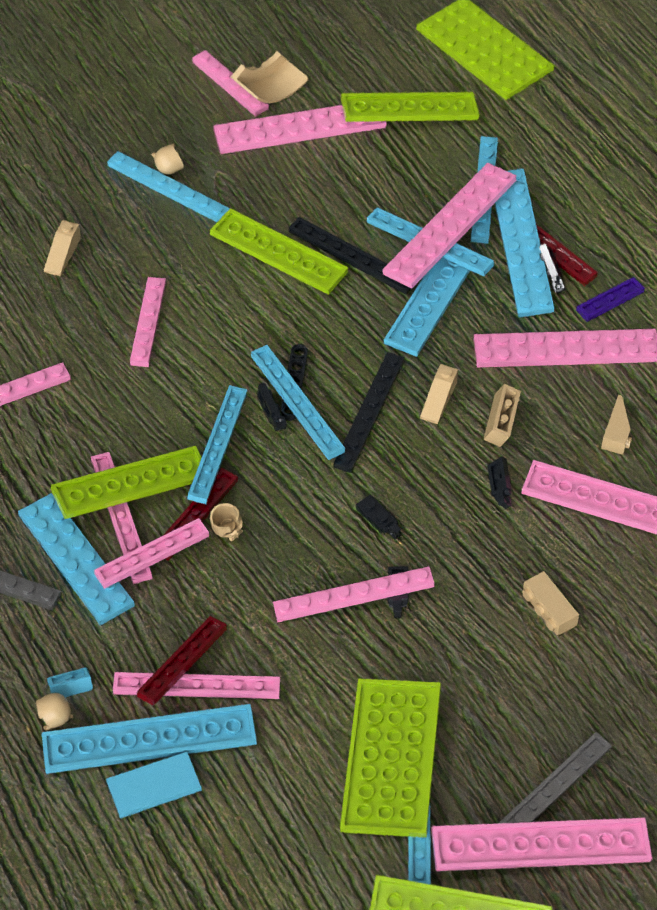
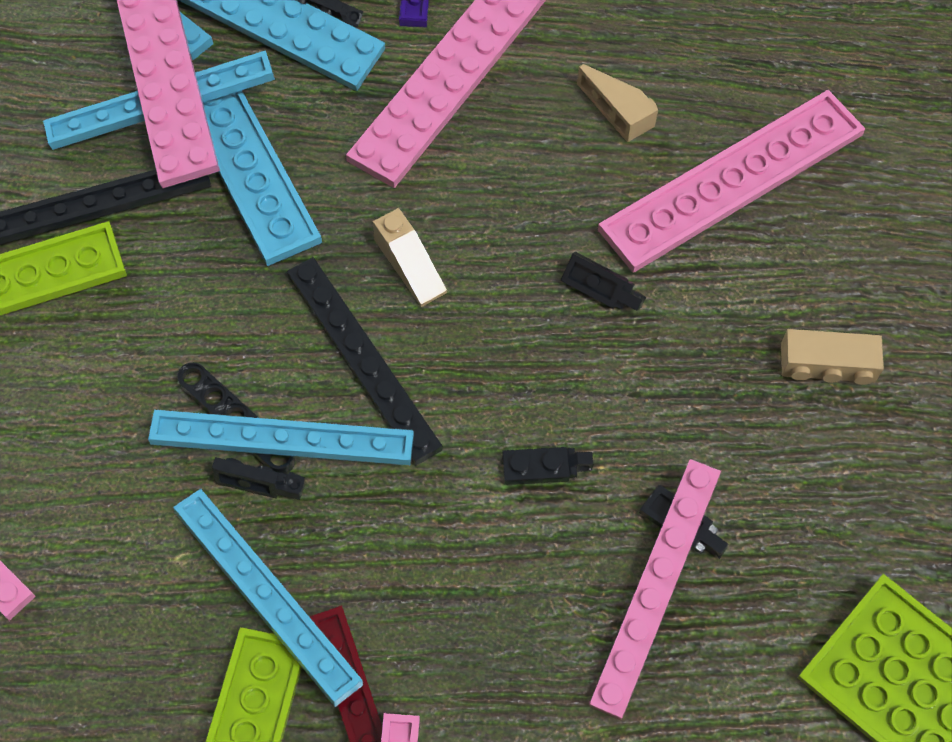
camera: 55 degrees left, 10 degrees up
(226, 521) = (412, 676): tan helmet -> none
(502, 415) = (506, 209): tan brick -> none

